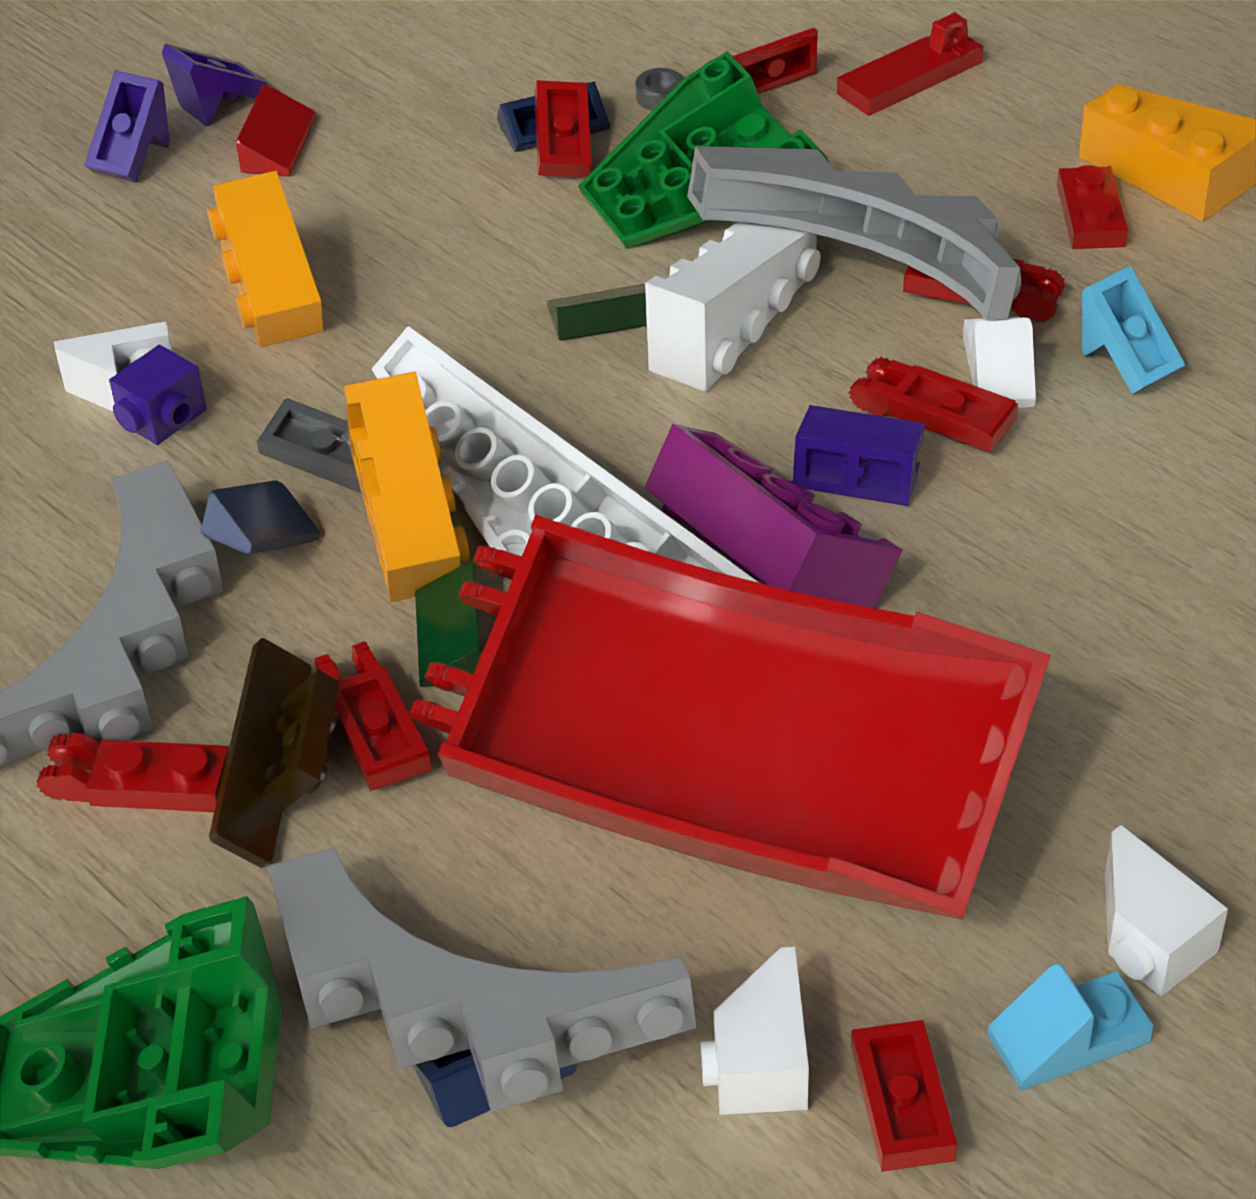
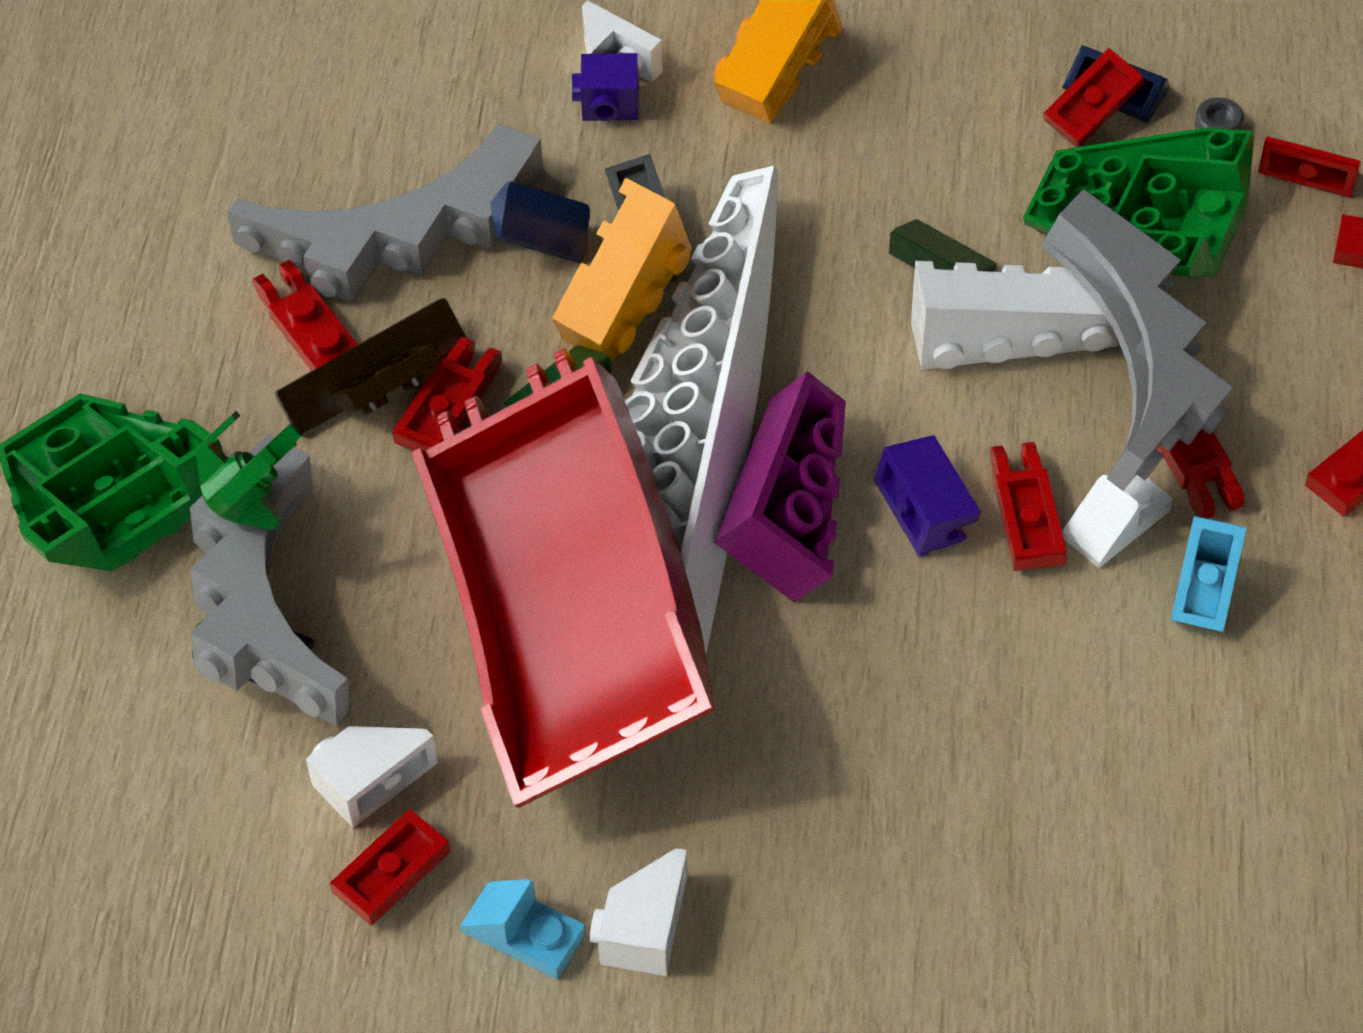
camera: 50 degrees right, 10 degrees up
(343, 899) = (239, 484): none -> green piece

